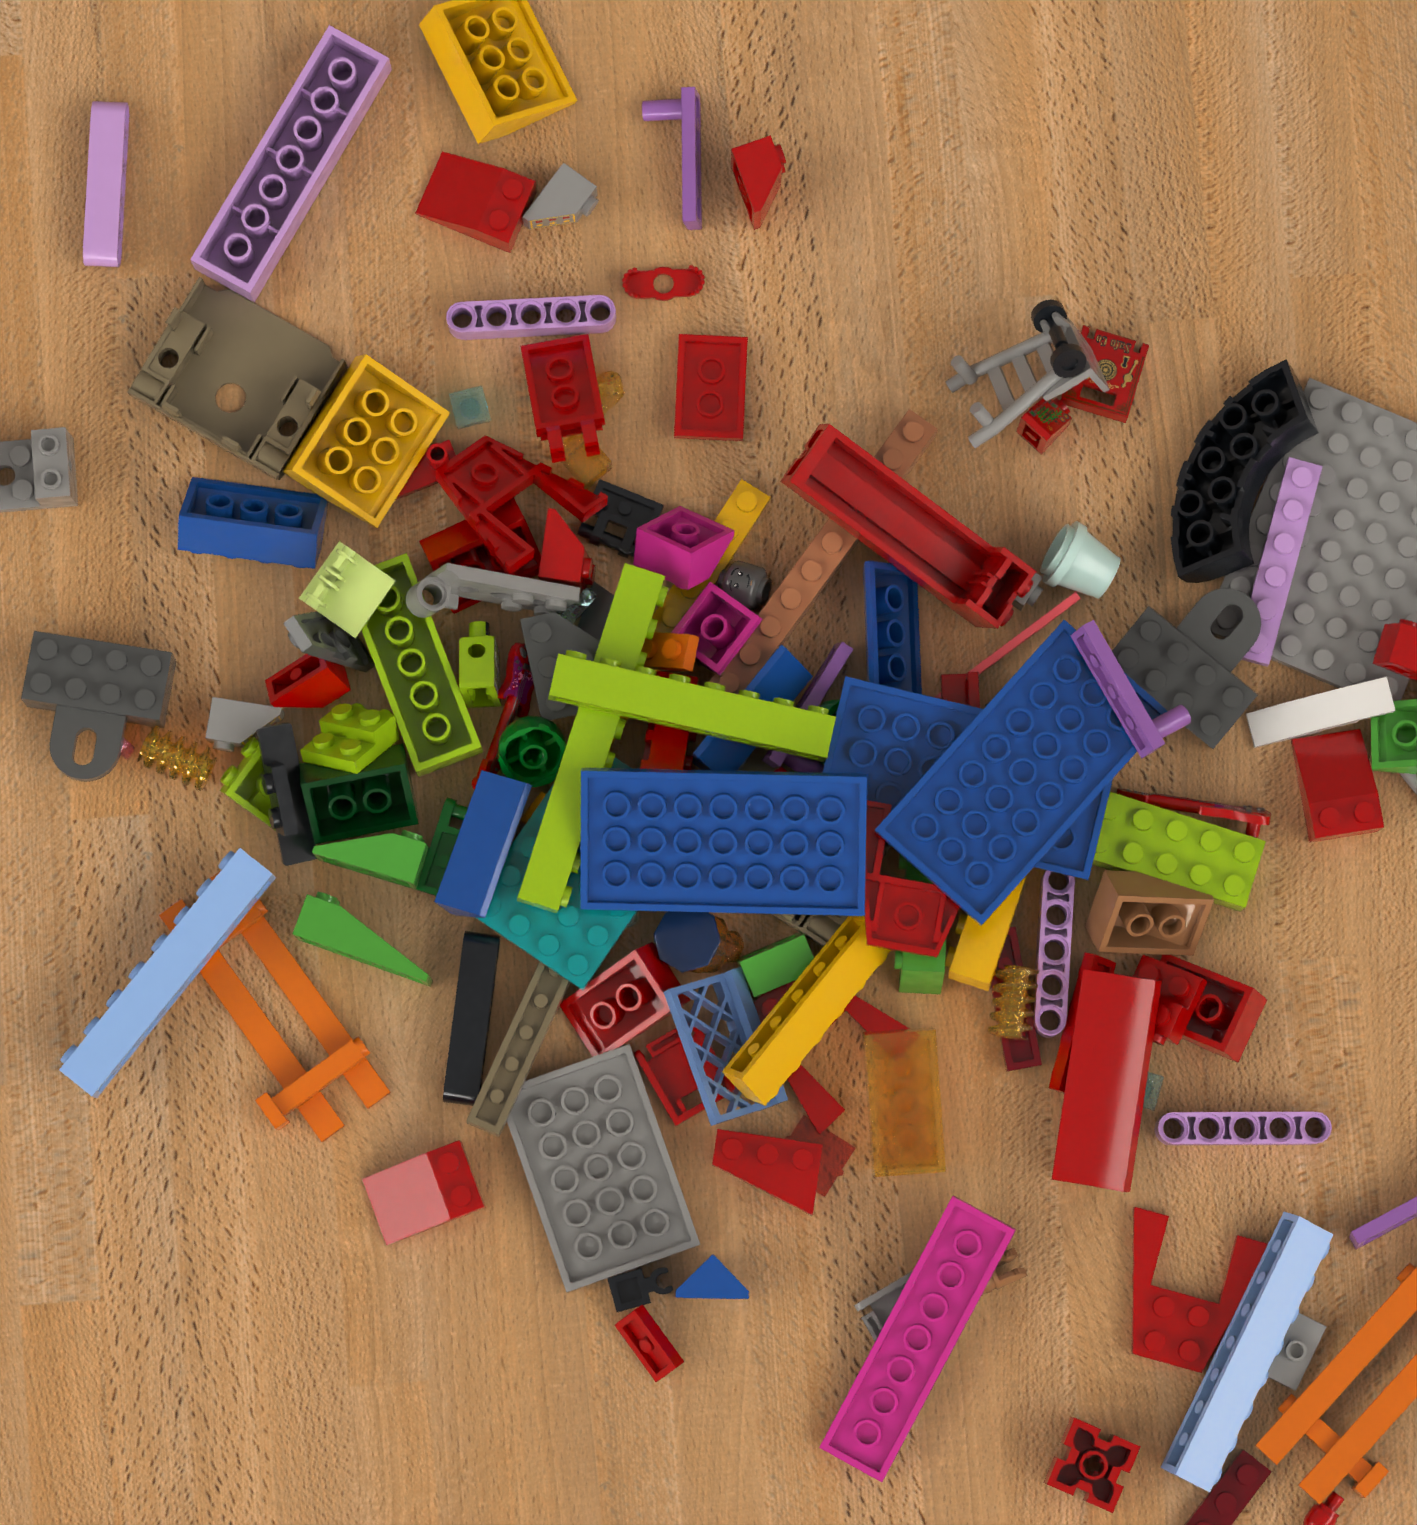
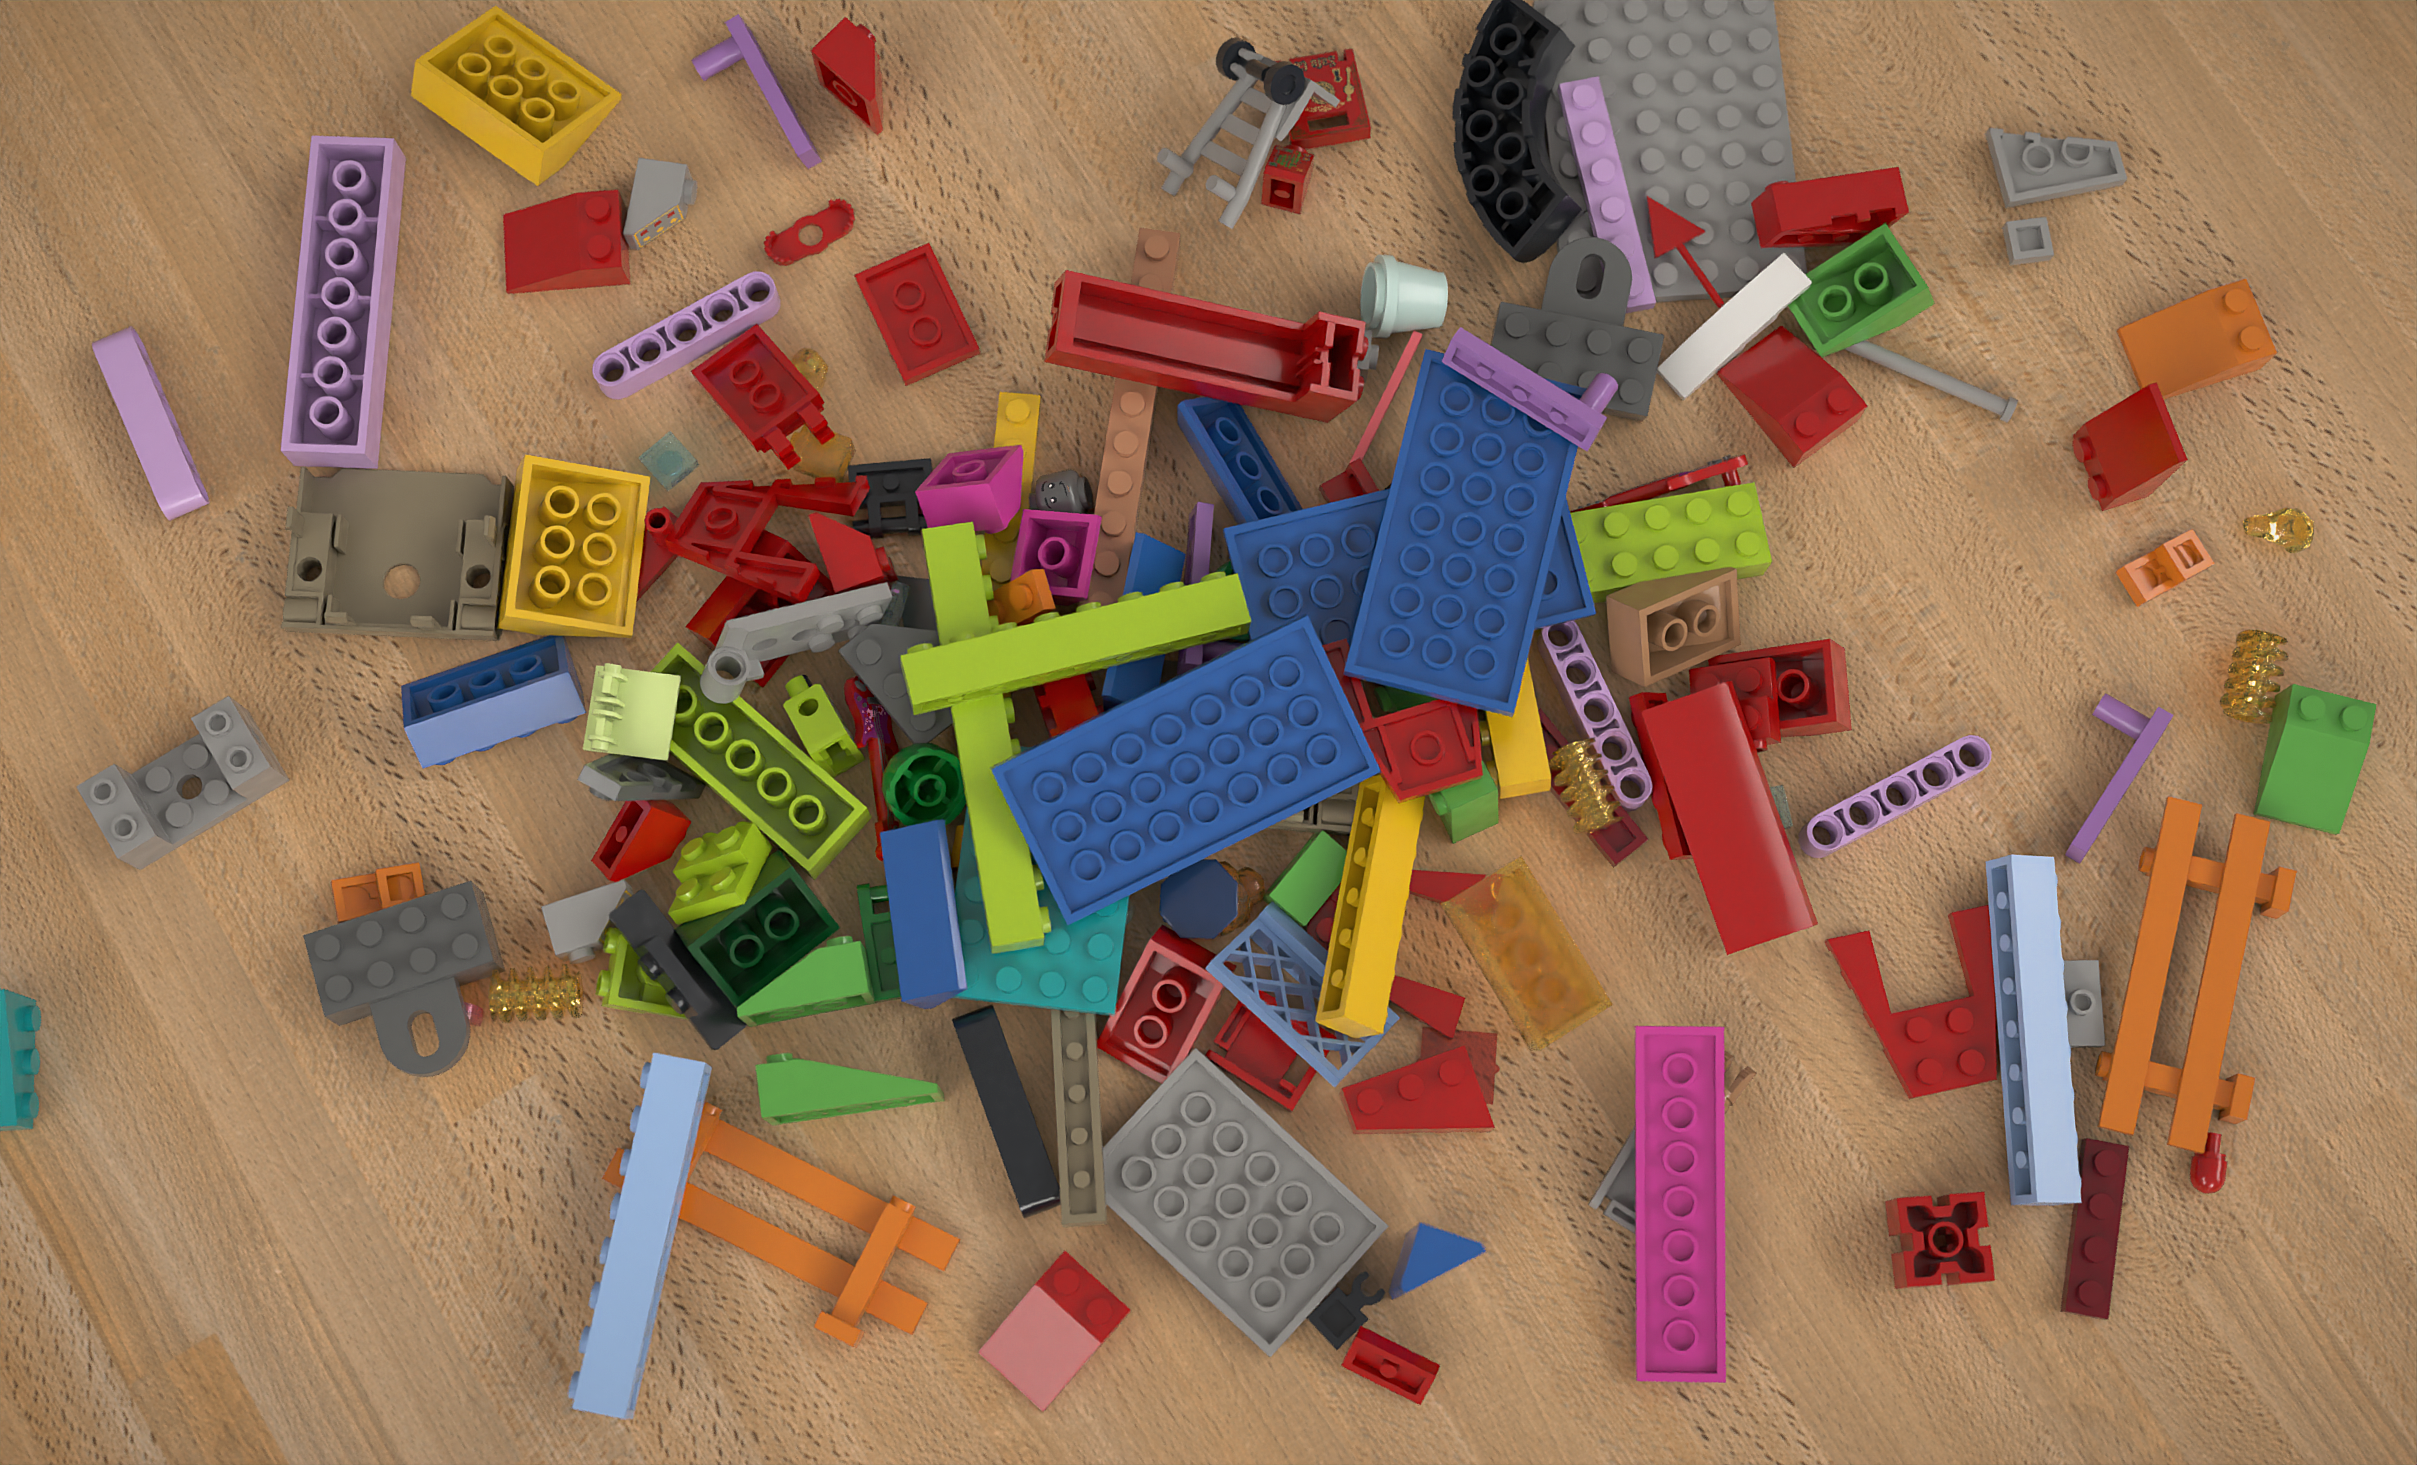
camera: 30 degrees left, 5 degrees down
(100, 623) = (376, 891): none -> orange slope
(1313, 615) = (1671, 232): none -> red piece

